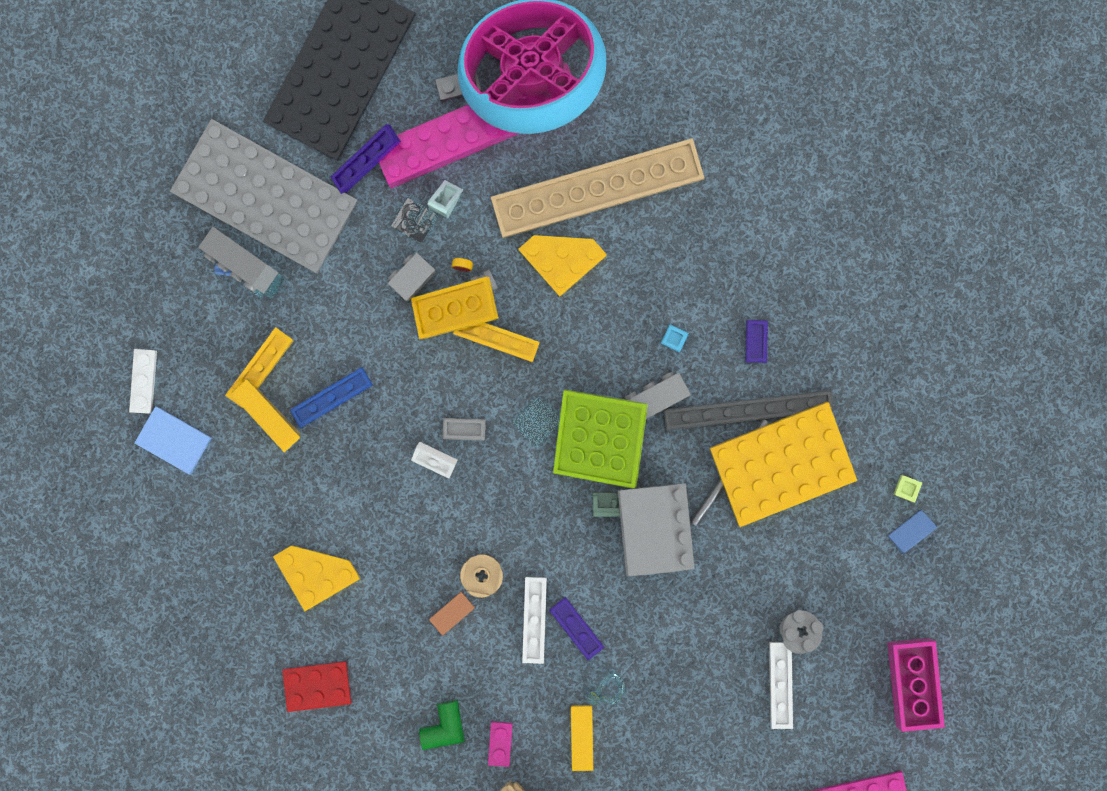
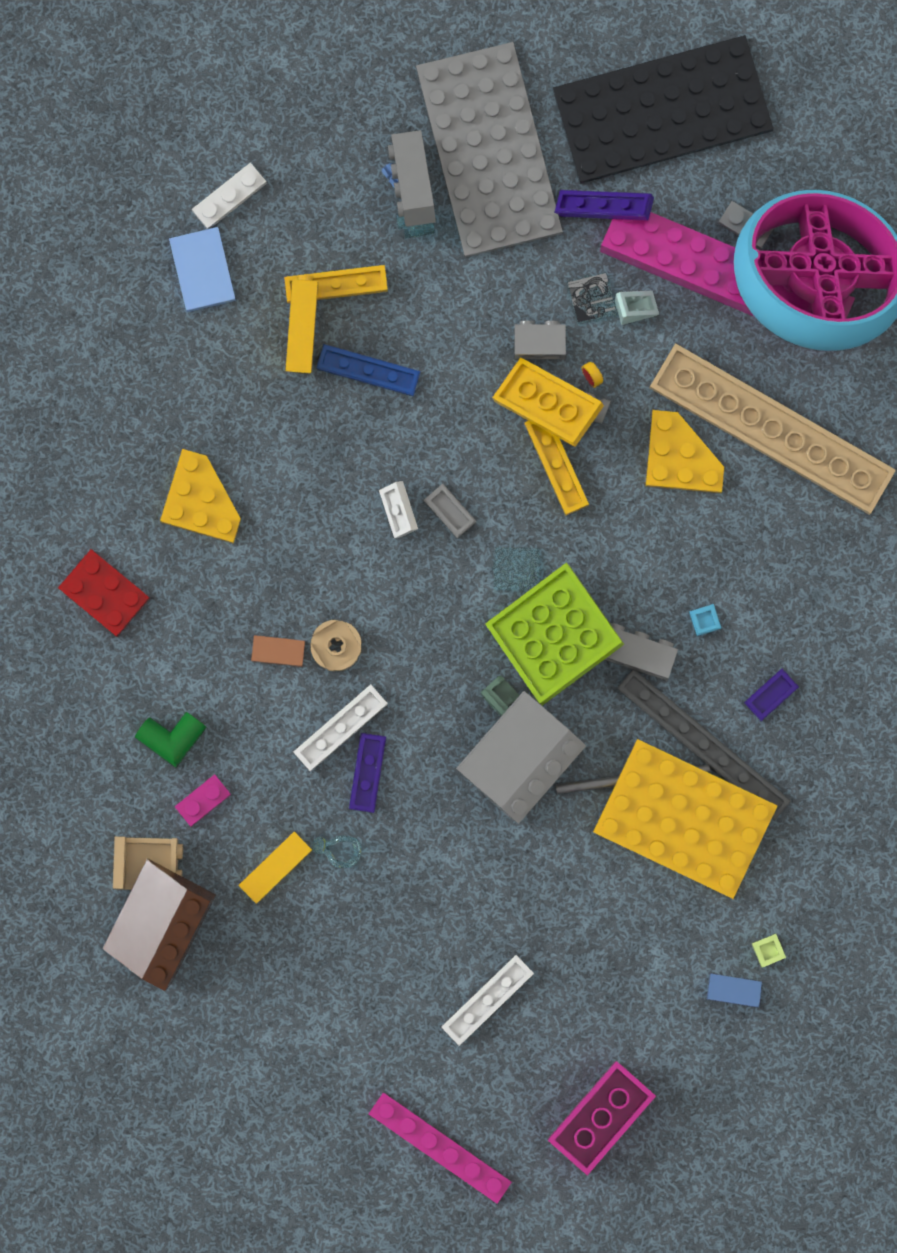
camera: 50 degrees right, 5 degrees down
(812, 629) = (565, 973): light grey plate -> none

